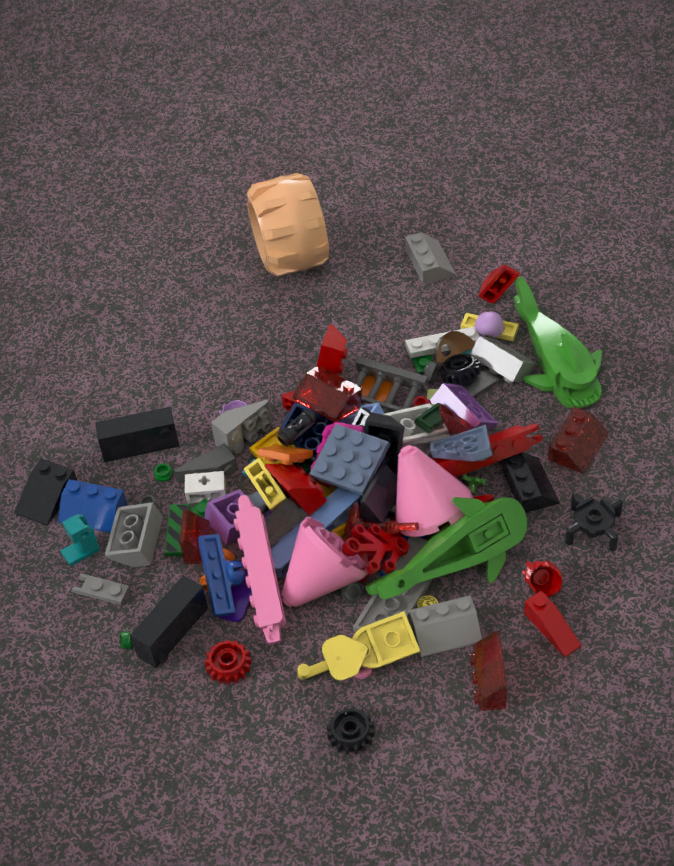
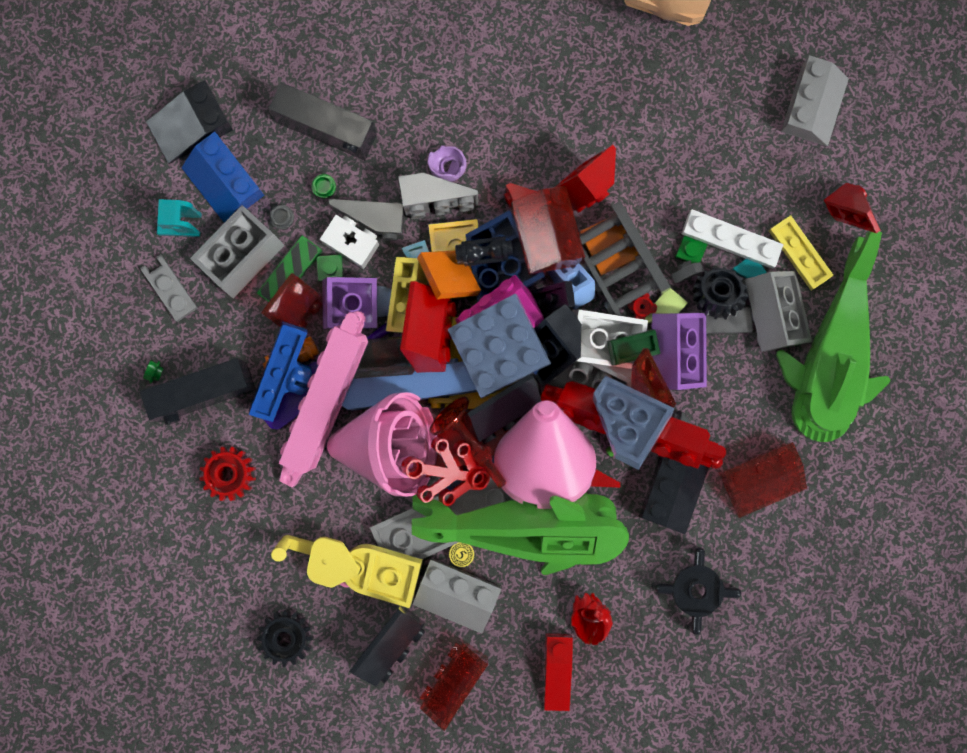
camera: 30 degrees right, 35 degrees up
(426, 682) = (388, 647): none -> black slope
(456, 341) = (740, 257): medium nougat piece -> none
(489, 324) = (799, 256): lavender hair -> none

